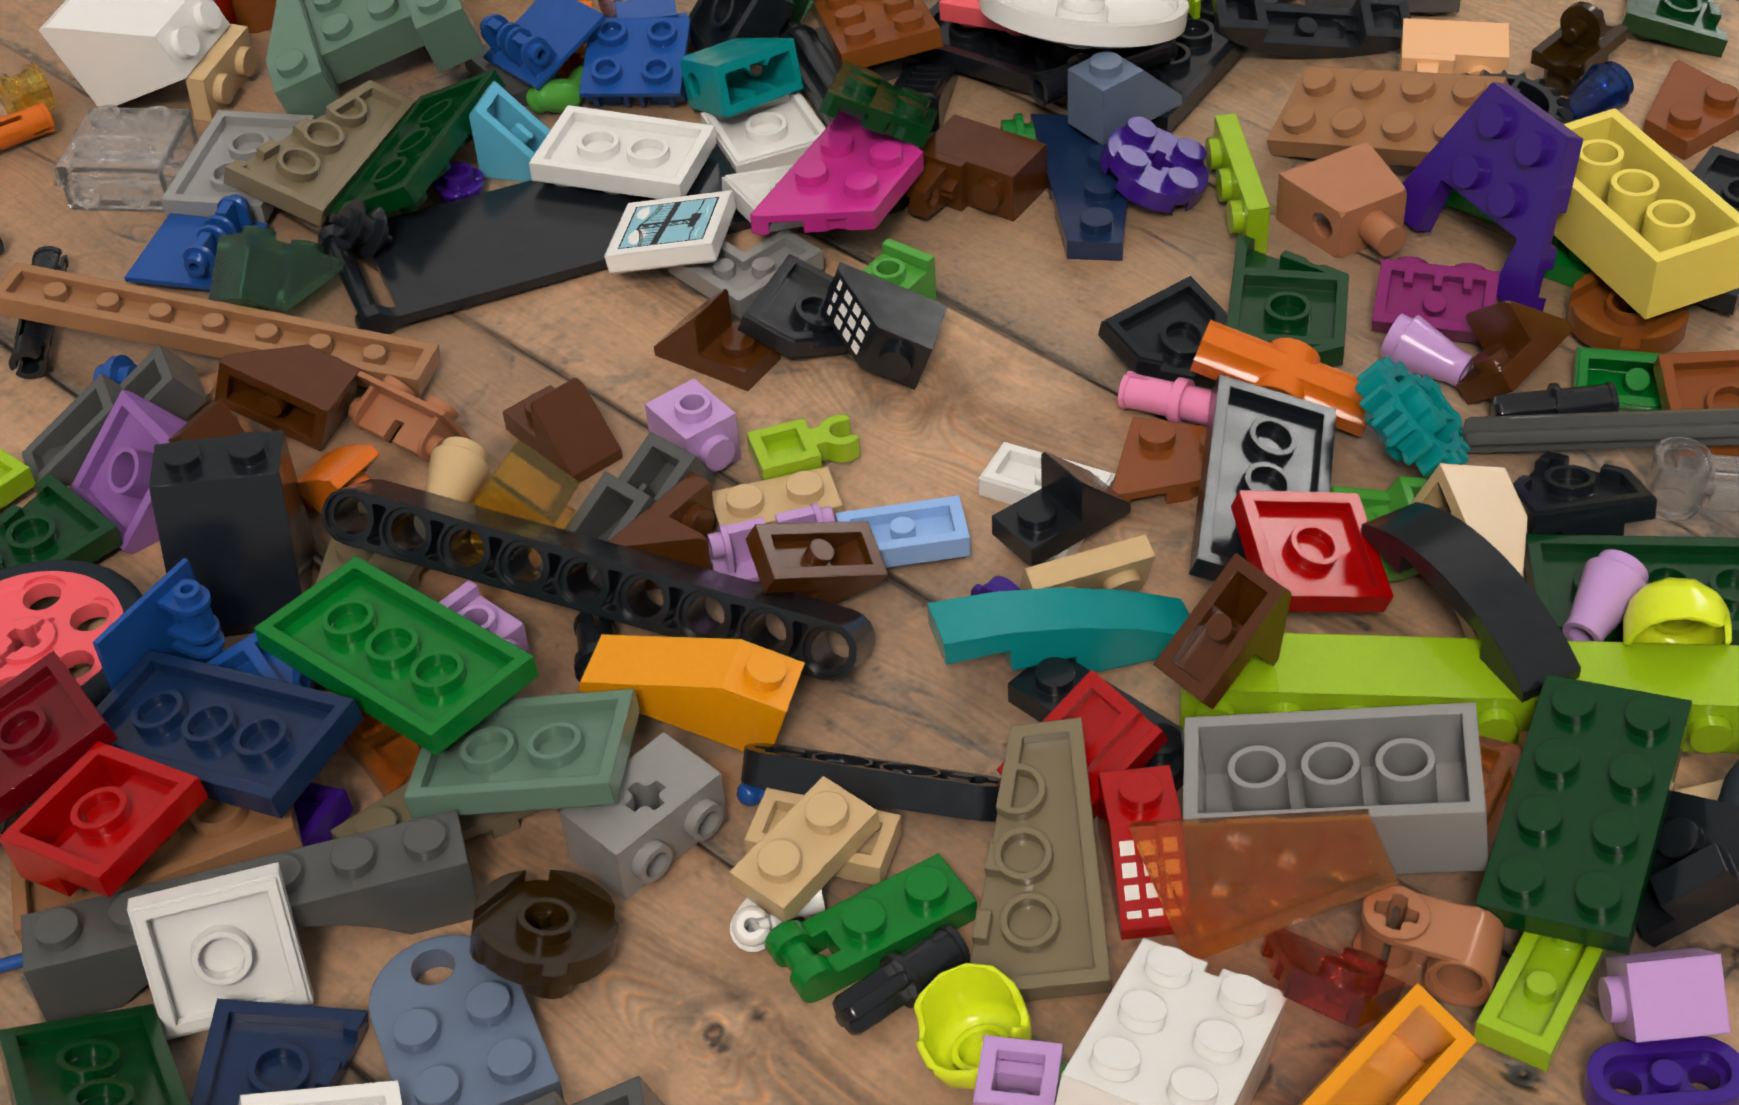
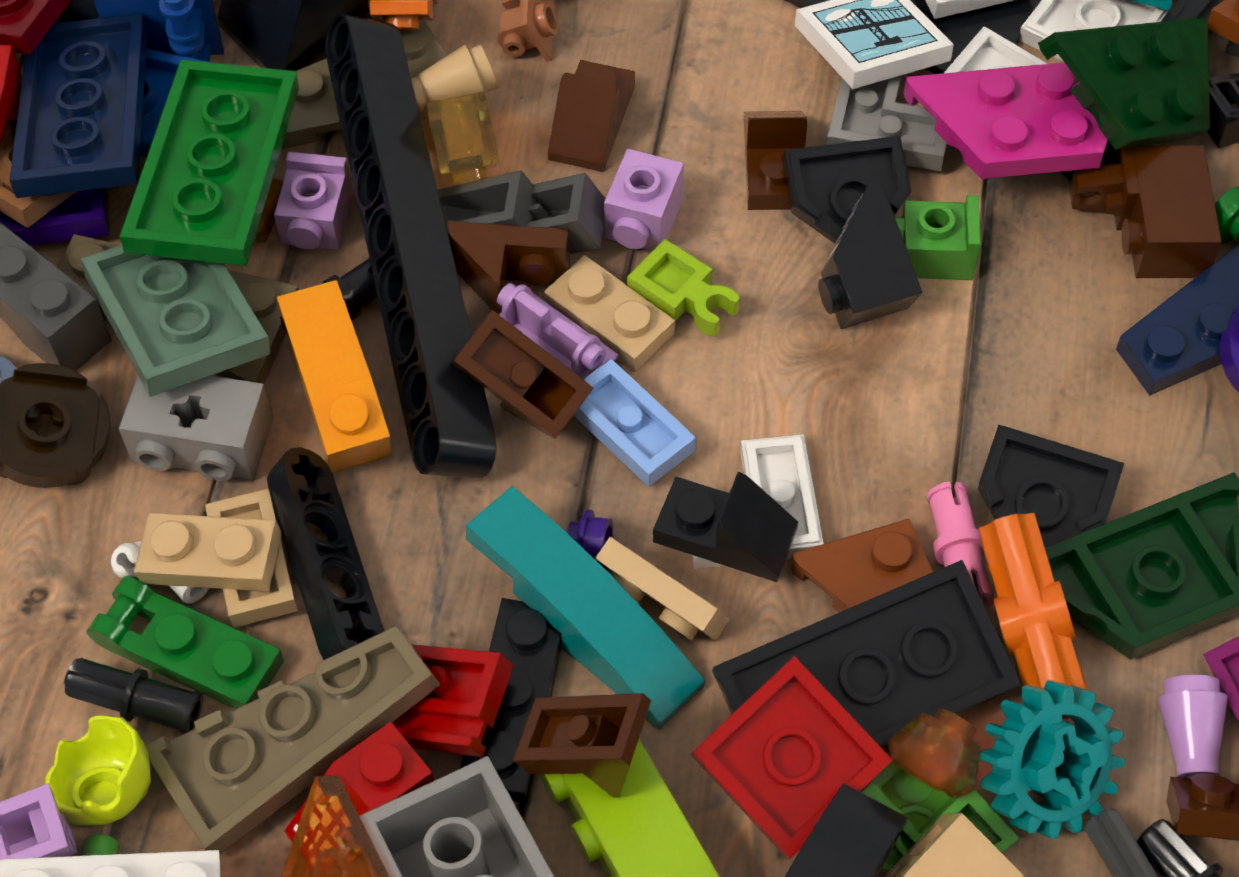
camera: 55 degrees right, 15 degrees up
(1371, 467) = (938, 752): none -> clear orange cone

